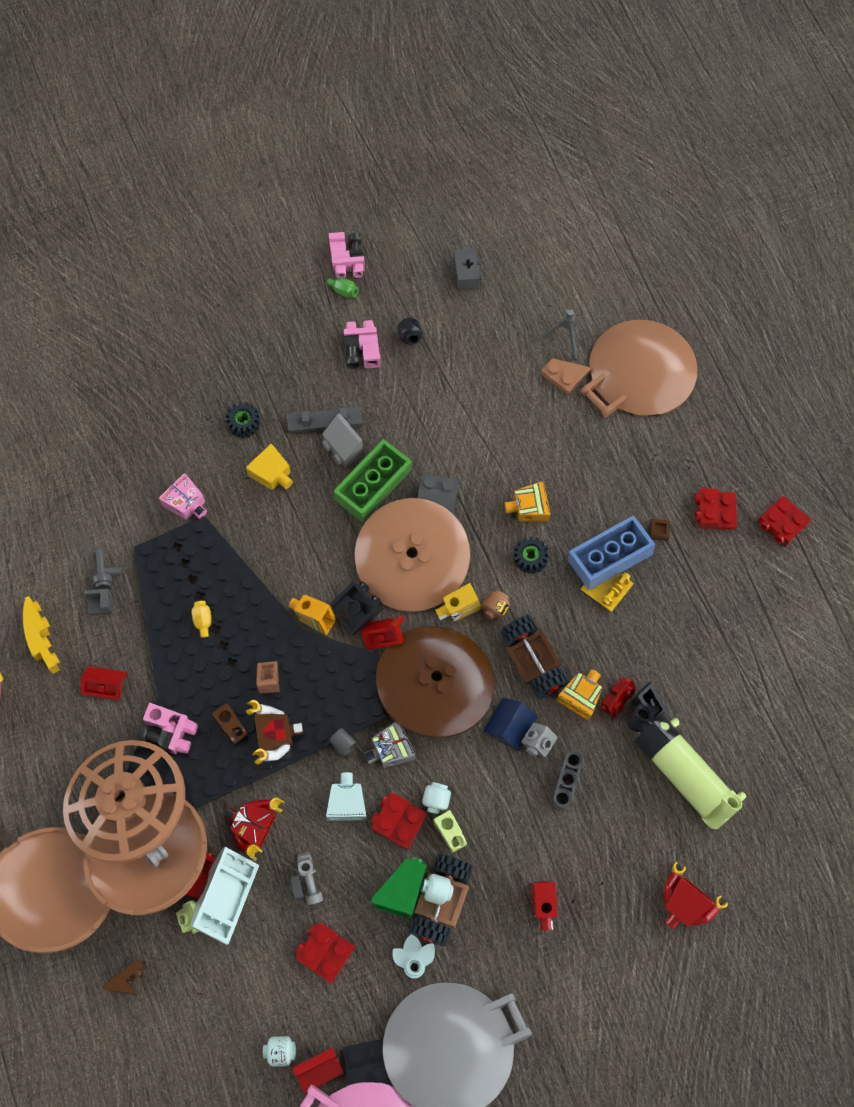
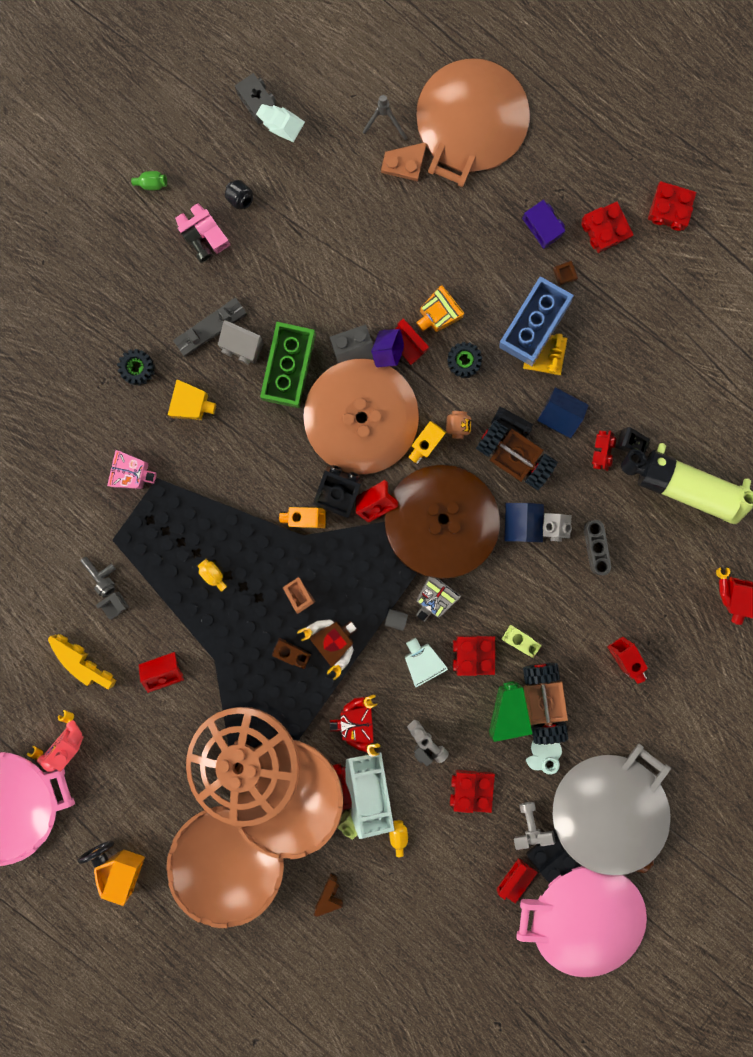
camera: 25 degrees left, 20 degrees up
(156, 856) = (297, 796): light grey wheel -> none
(172, 731) = (246, 685): bright pink hips -> none
(228, 957) = (399, 837): none -> yellow plant
(279, 1051) = (480, 885): light aqua head -> none
(349, 260) = (137, 150): bright pink hips -> none
(359, 1028) = (533, 835): none -> light grey bar
(436, 797) = (496, 620): light aqua head -> none
(437, 889) = (540, 700): light aqua head -> none
(469, 512) = (389, 348): none -> dark purple piece
(476, 293) = (280, 121): none -> light aqua connector
(488, 515) = (413, 344): none -> red panel
(547, 628) = (512, 421): none -> black hinge
(581, 694) = (573, 465): light orange torso -> none
(596, 645) = (563, 413): none -> dark blue slope
(660, 479) = (544, 224): none -> dark purple brick

